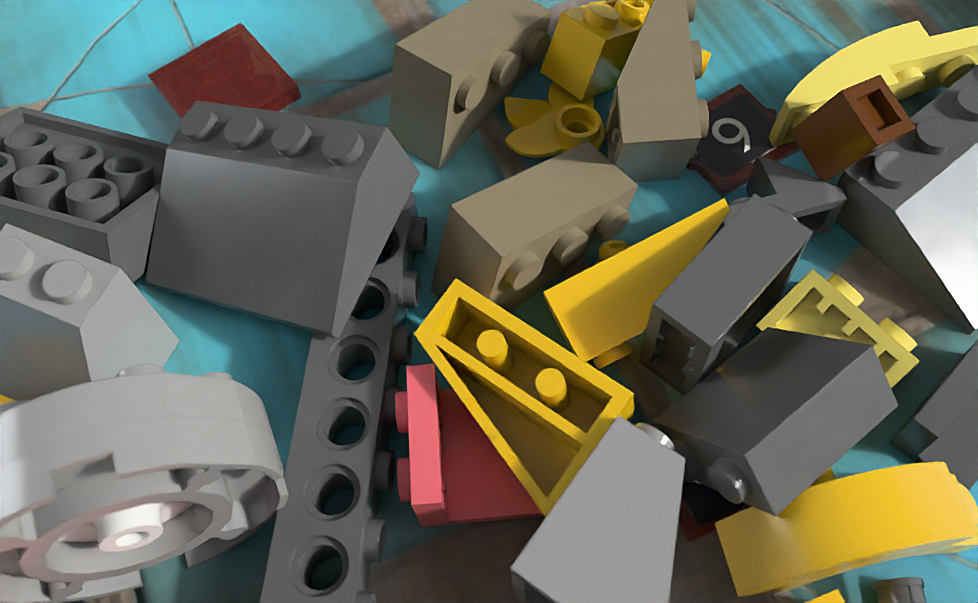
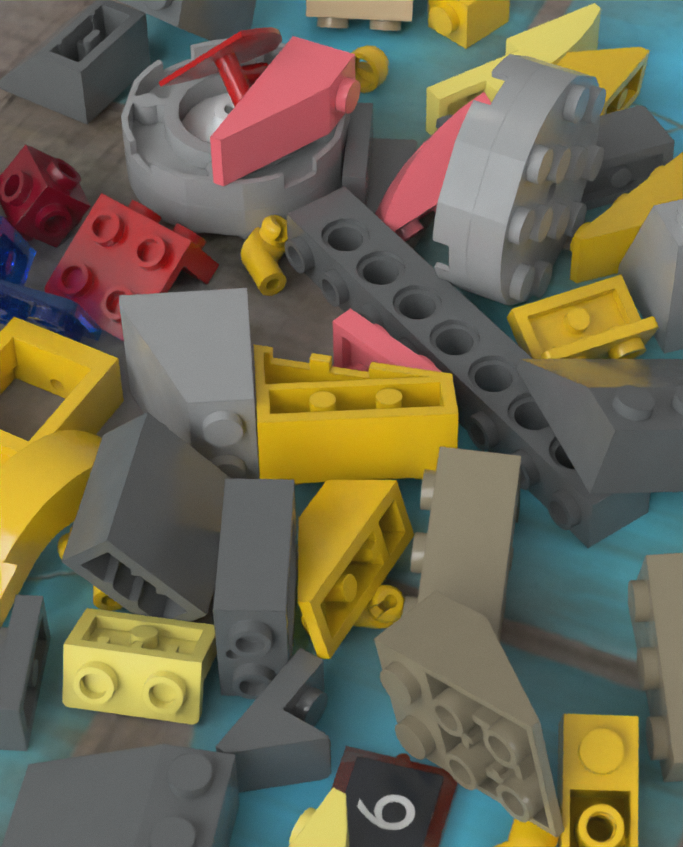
camera: 135 degrees right, 15 degrees down
(250, 357) = (583, 324): none -> yellow bracket
(552, 124) = (567, 686): yellow plate -> none
(851, 127) = (253, 767): reddish brown panel -> none

